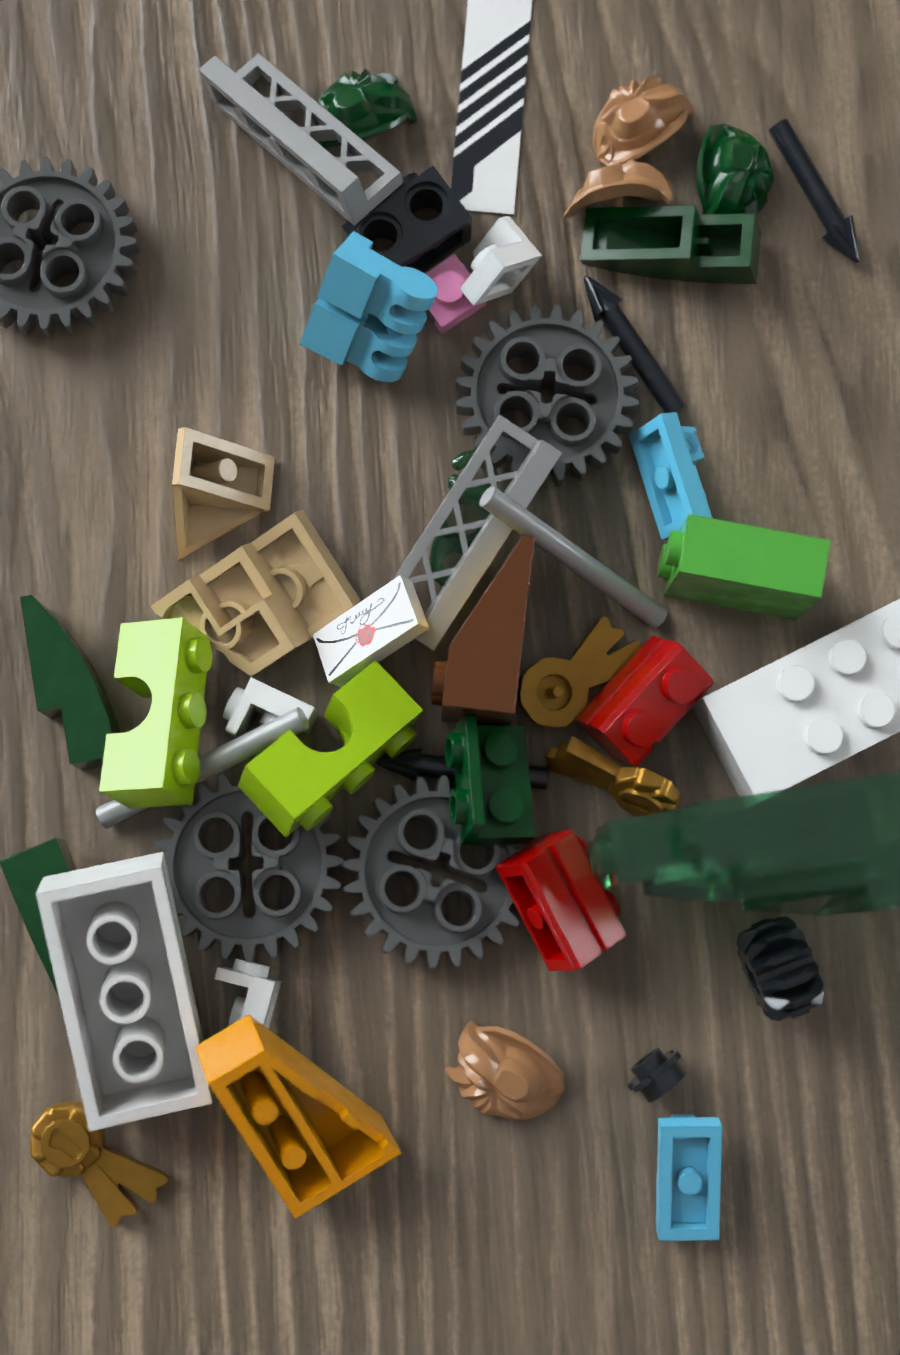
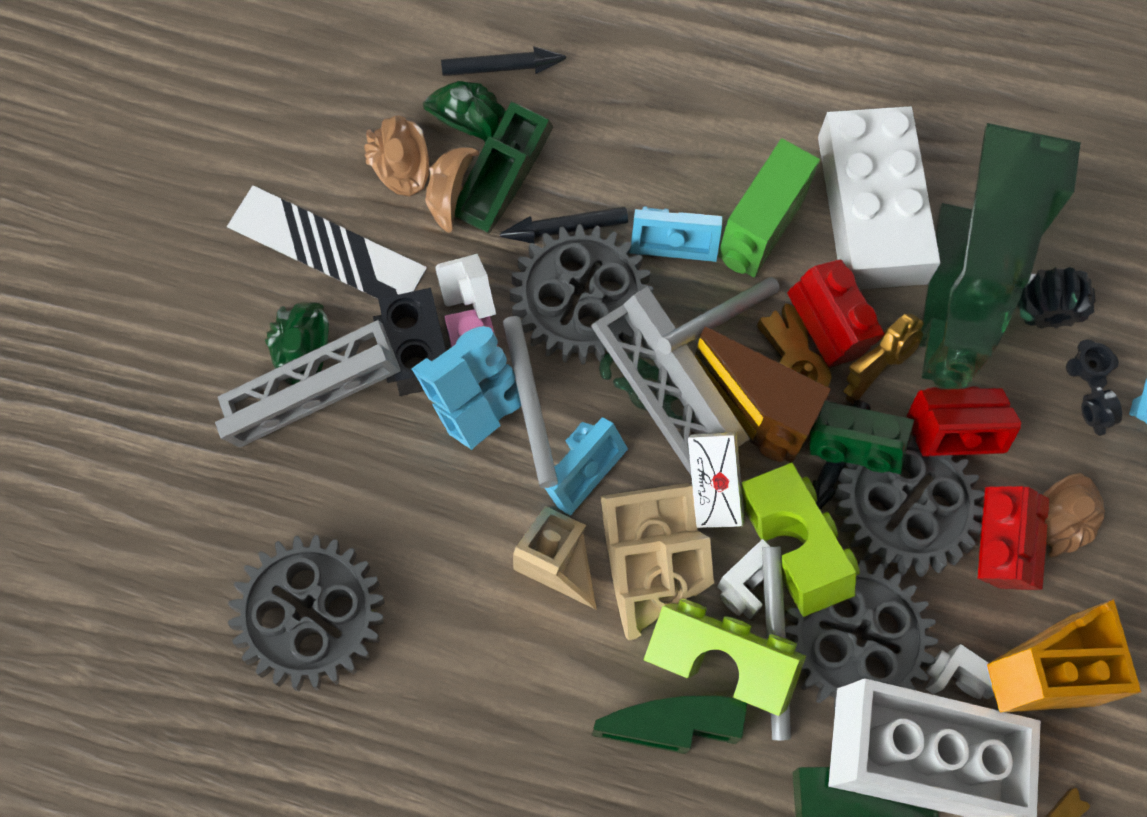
camera: 70 degrees left, 10 degrees down
(325, 477) = (590, 459): none -> medium azure hinge
(376, 382) = (530, 402): none -> light grey bar
(435, 1009) = (1013, 538): none -> red brick
(728, 1062) = (1097, 353): none -> black plate

